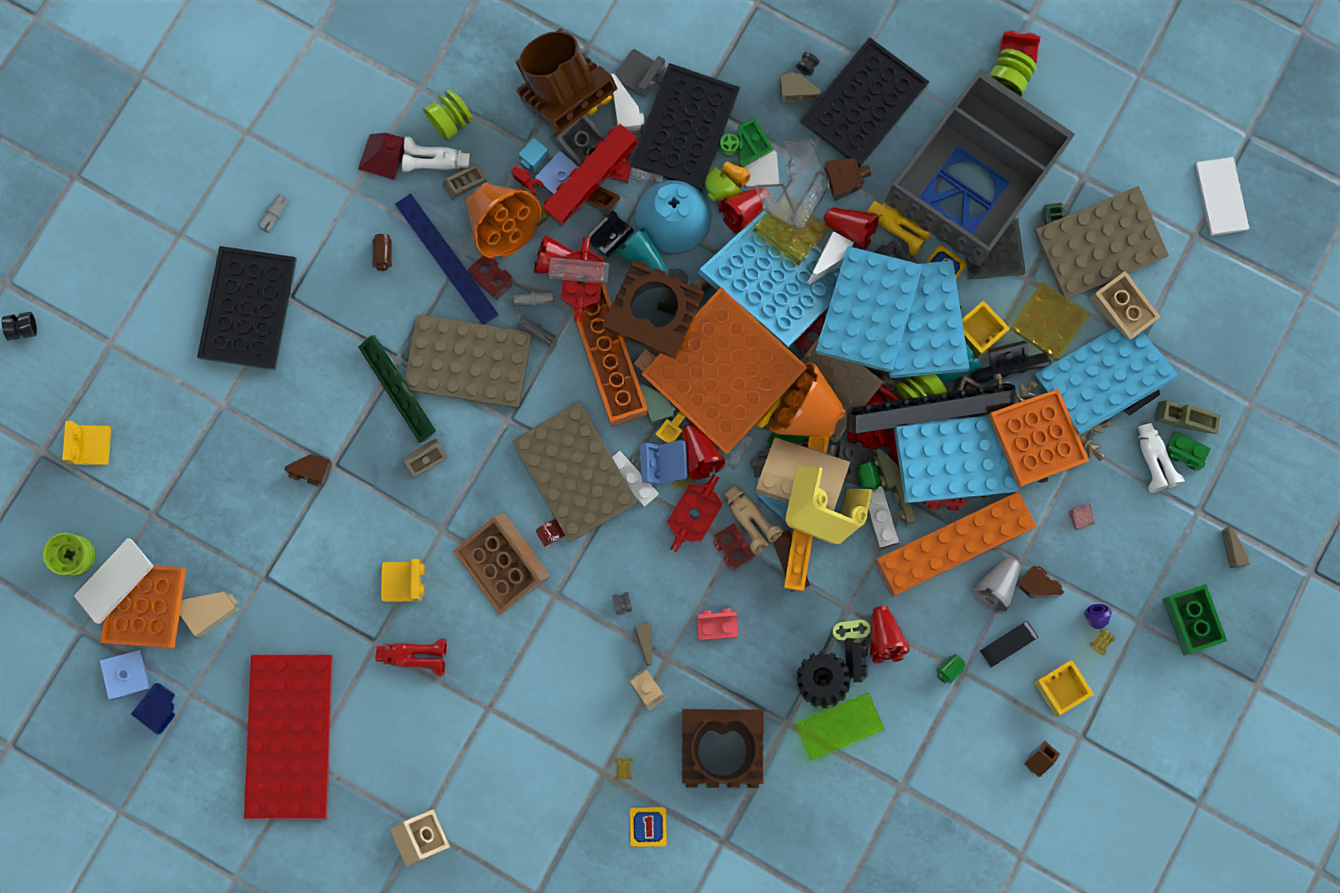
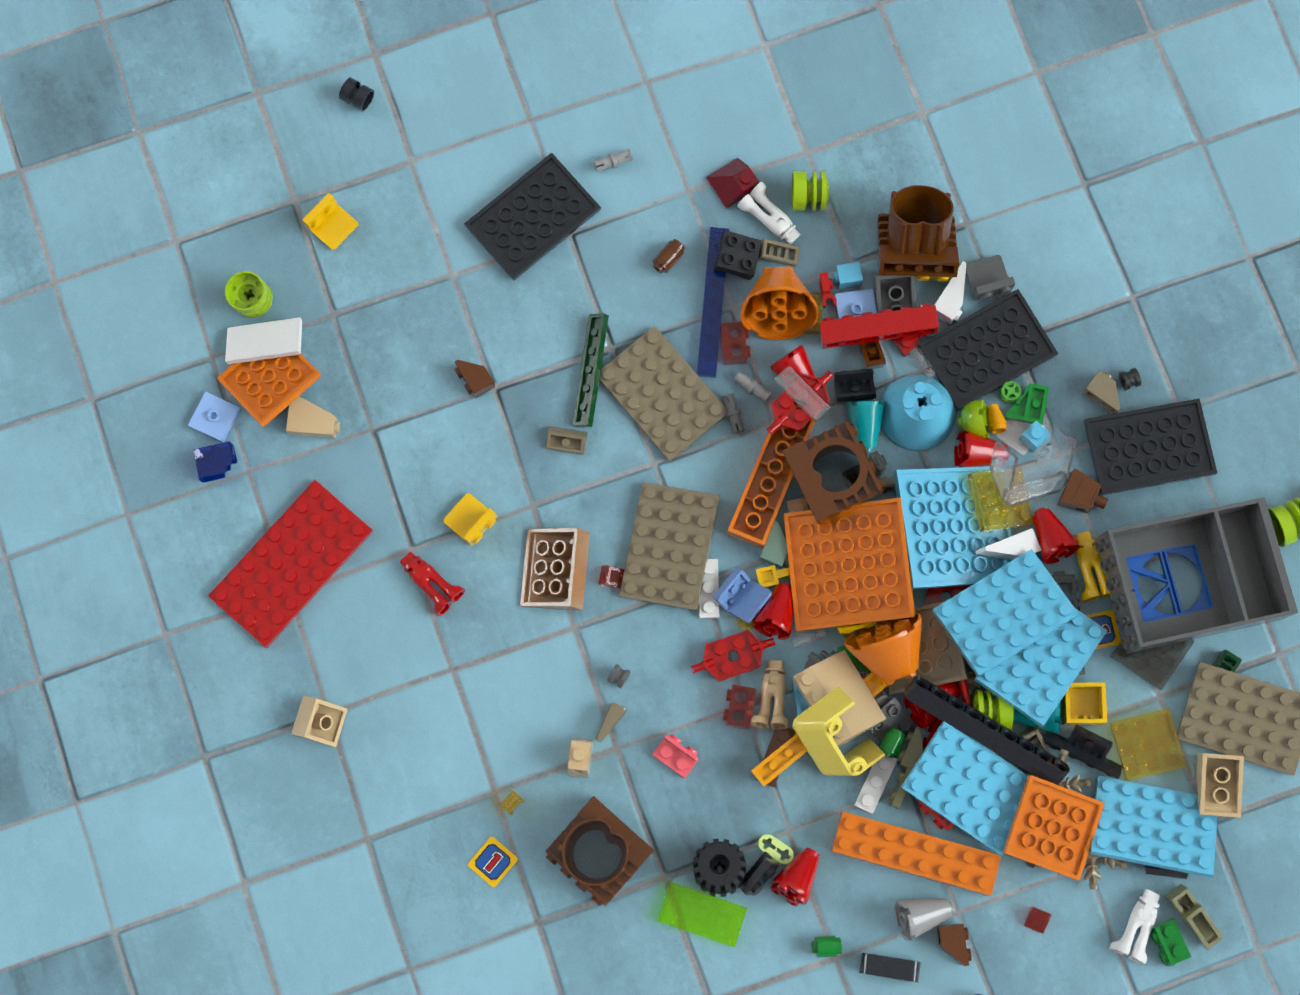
camera: 50 degrees right, 0 degrees up
(435, 207) = (737, 254): none -> black brick
(775, 162) = (1034, 436): none -> medium azure brick

